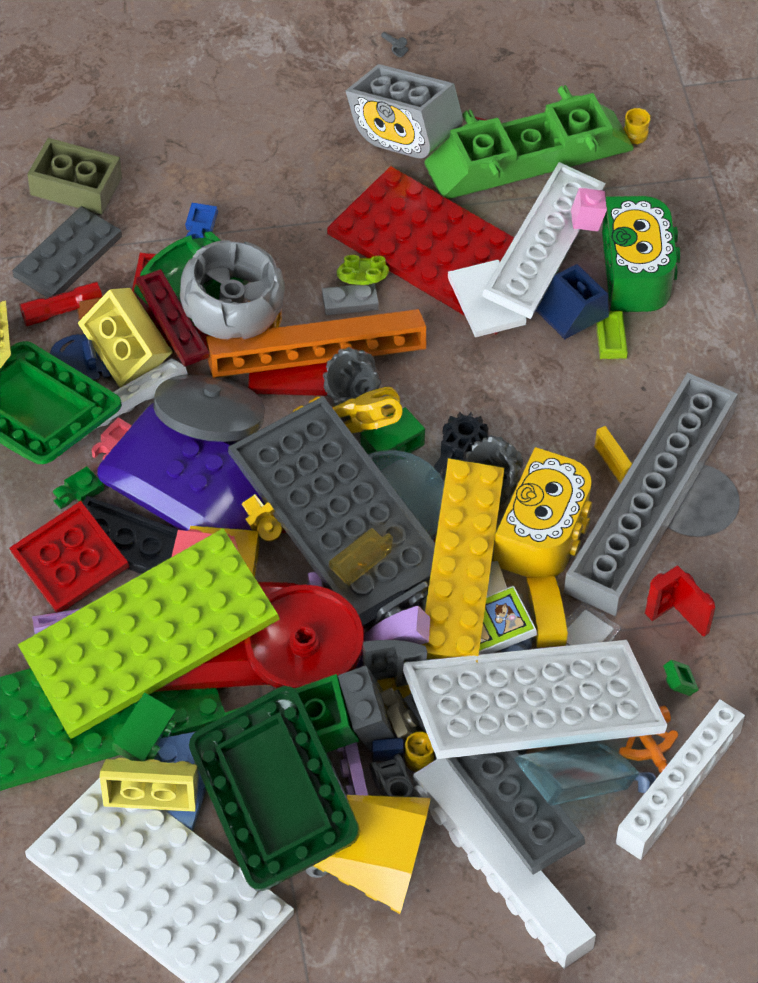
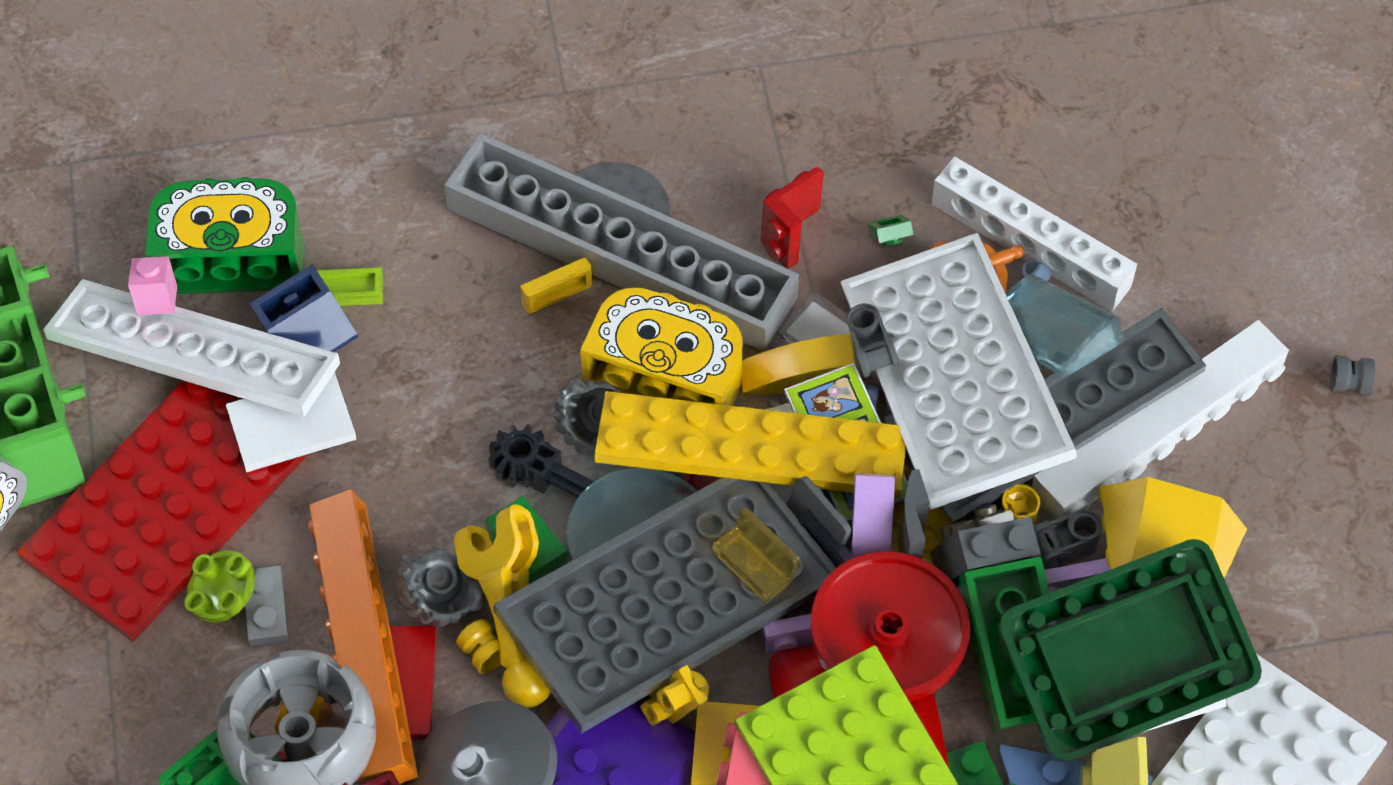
camera: 90 degrees left, 5 degrees up
(557, 640) = (871, 344): none -> dark grey piece

